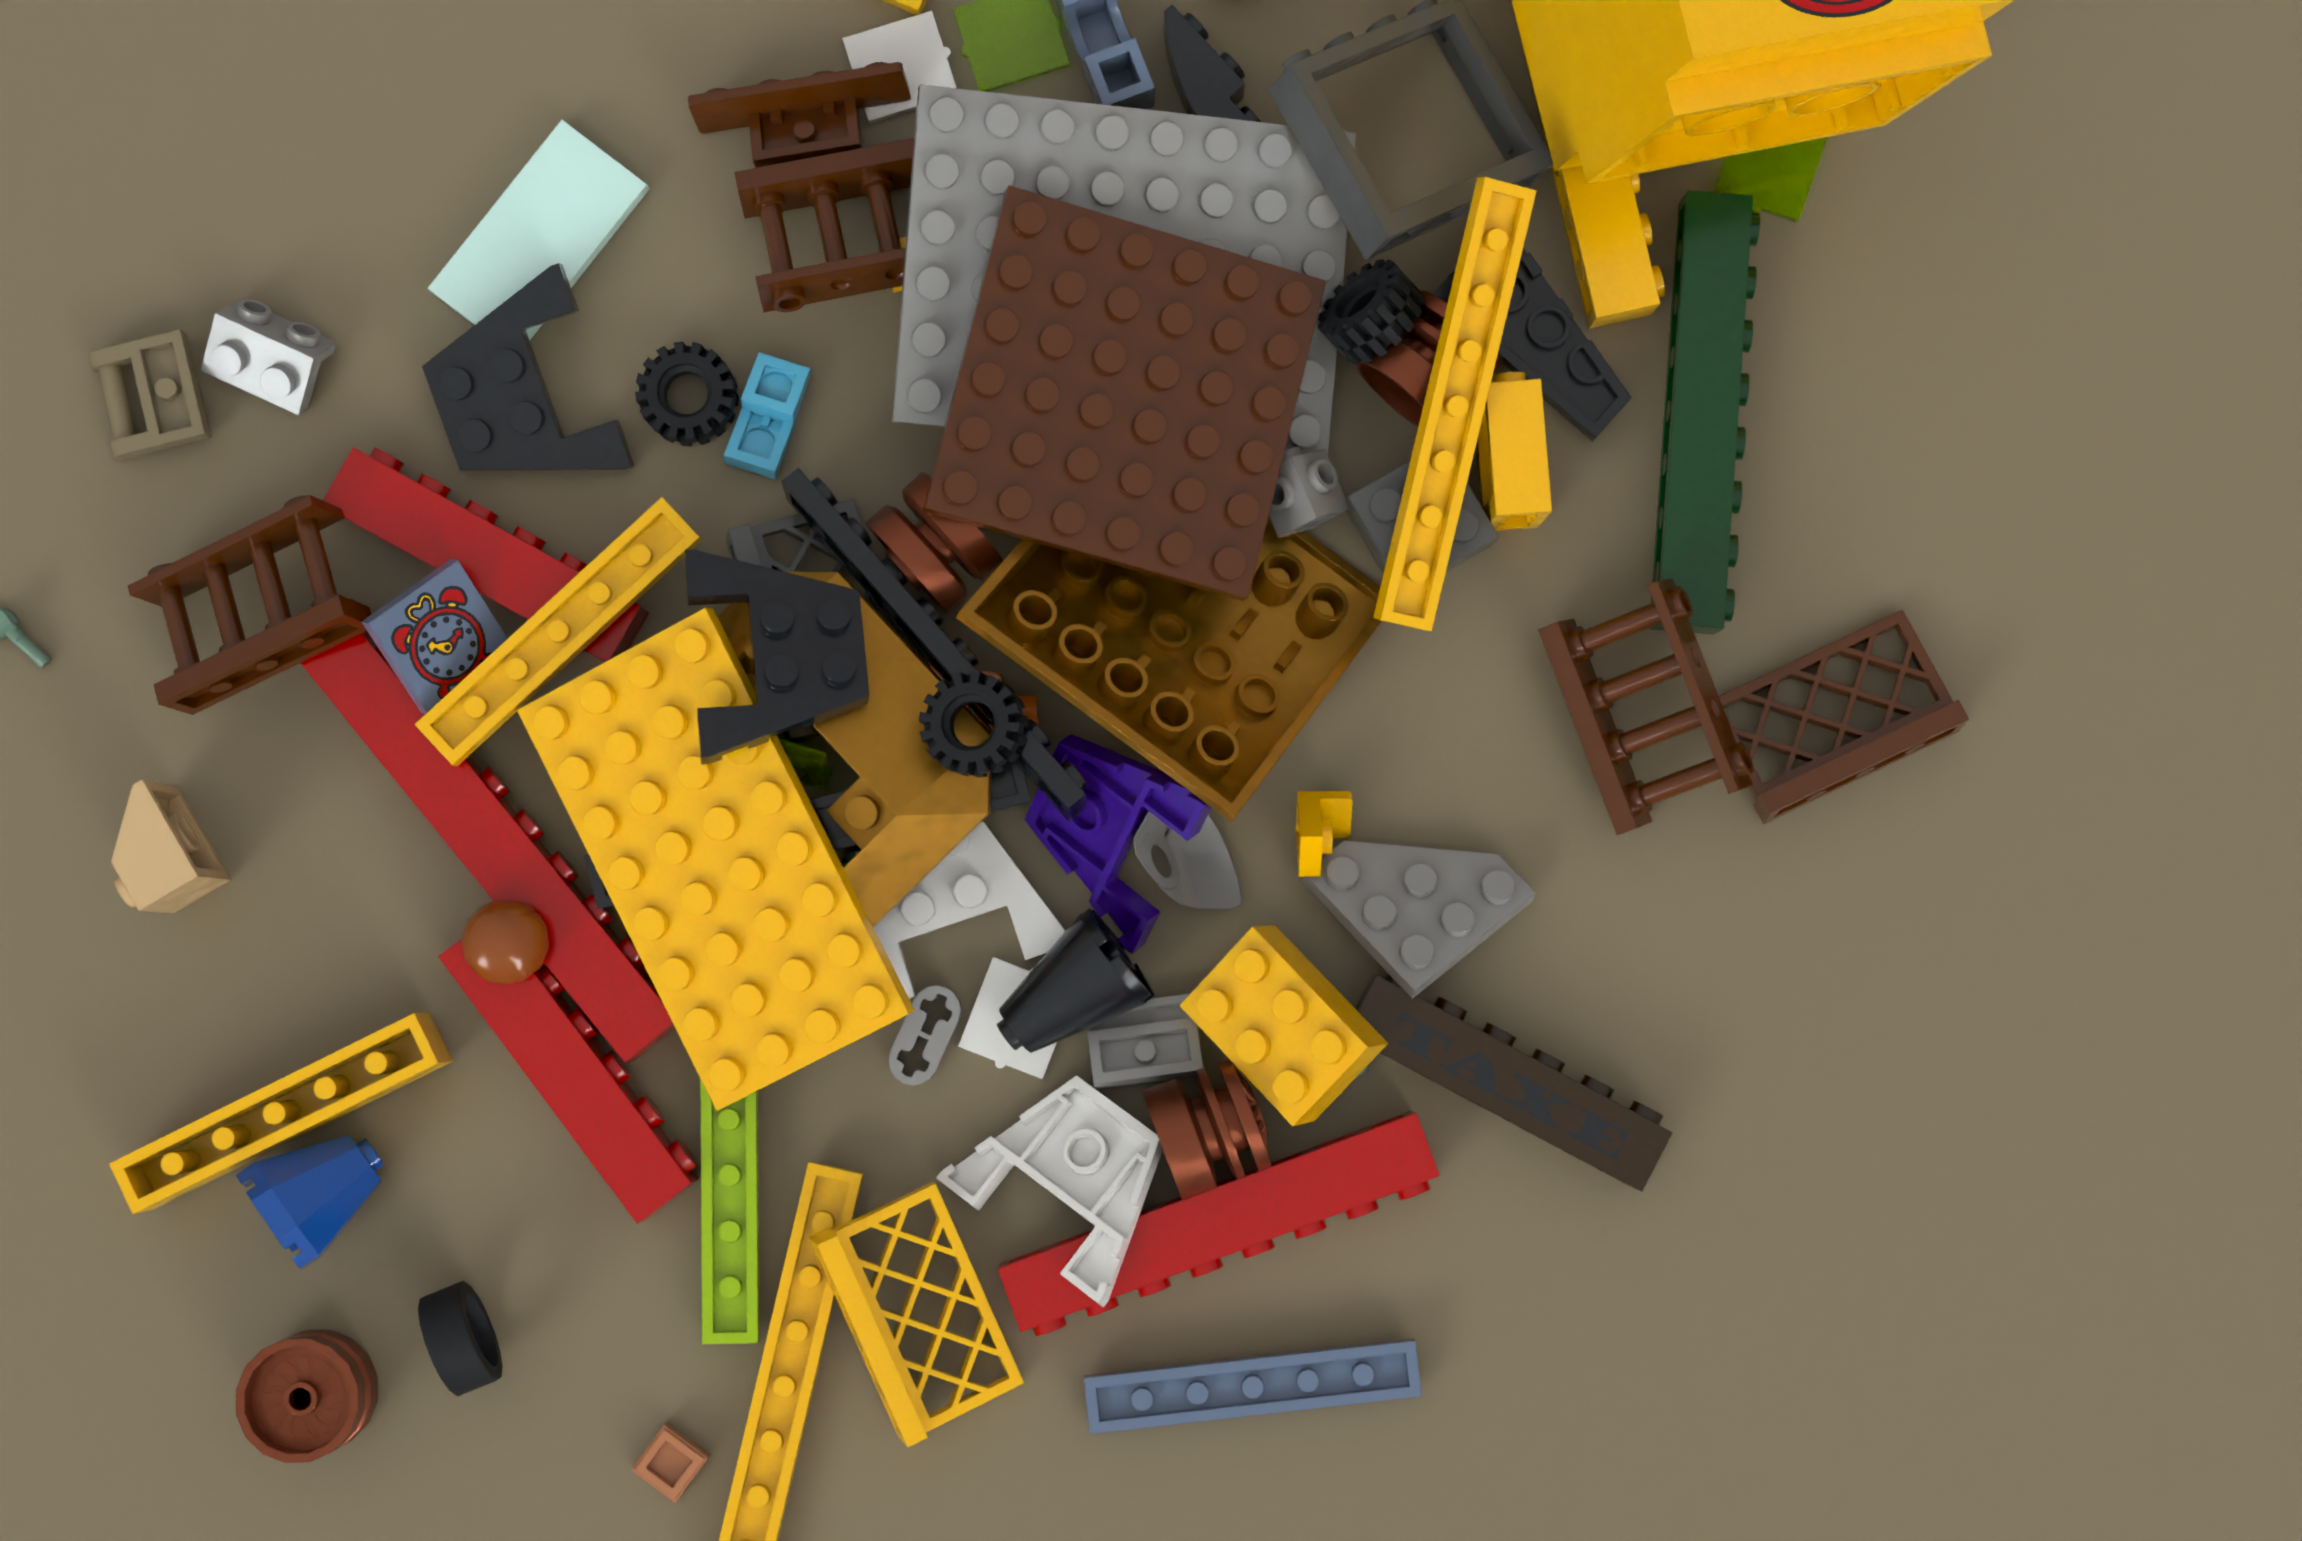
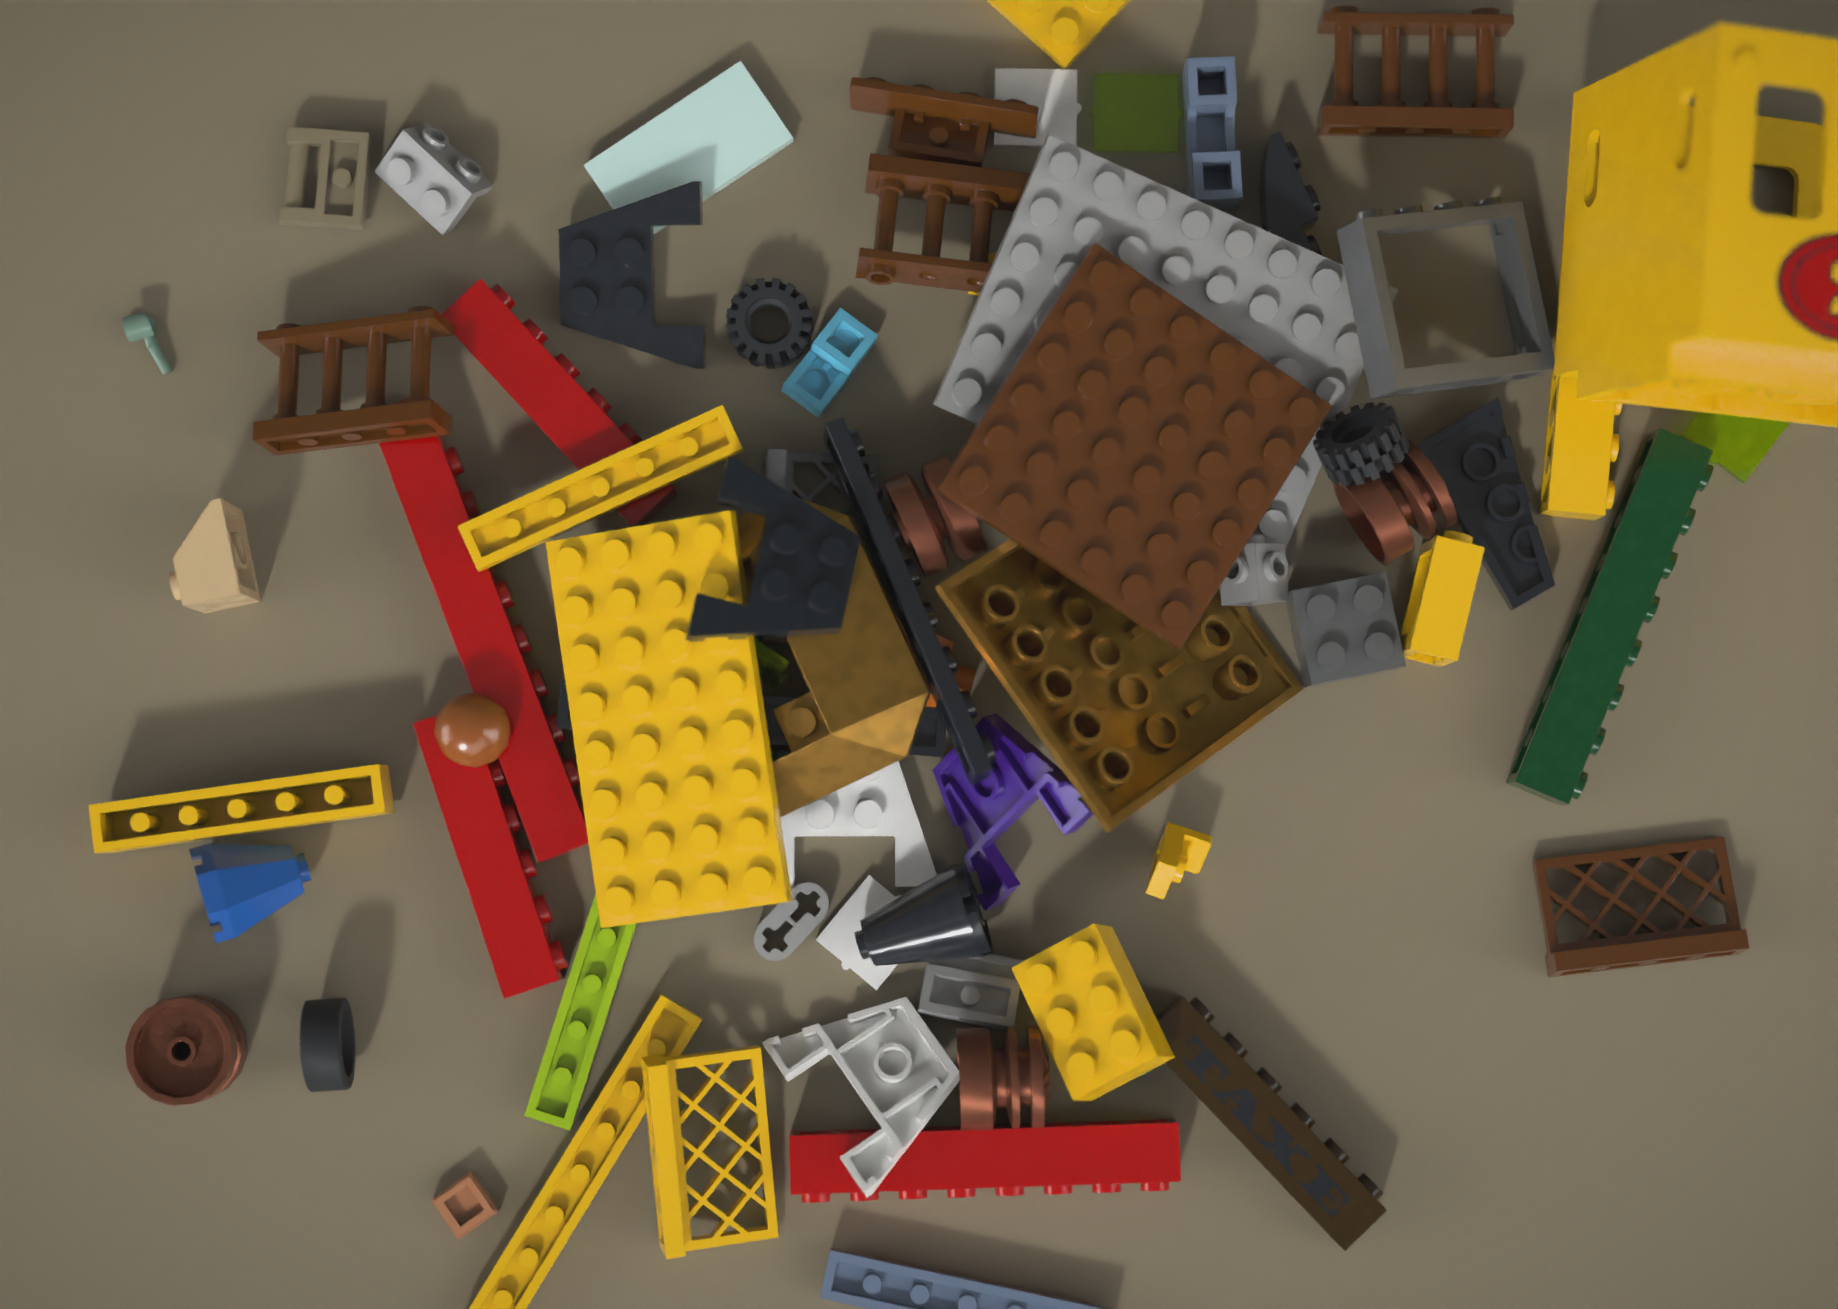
camera: 20 degrees right, 0 degrees up
(435, 633) = (499, 456): sand blue tile -> none
(940, 718) = (898, 659): black tyre -> none
(1199, 868) = (1064, 861): light grey piece -> none
(1418, 904) = (1236, 949): light grey plate -> none
(1454, 403) = (1406, 545): yellow plate -> none
(1612, 748) = (1441, 874): reddish brown fence -> none

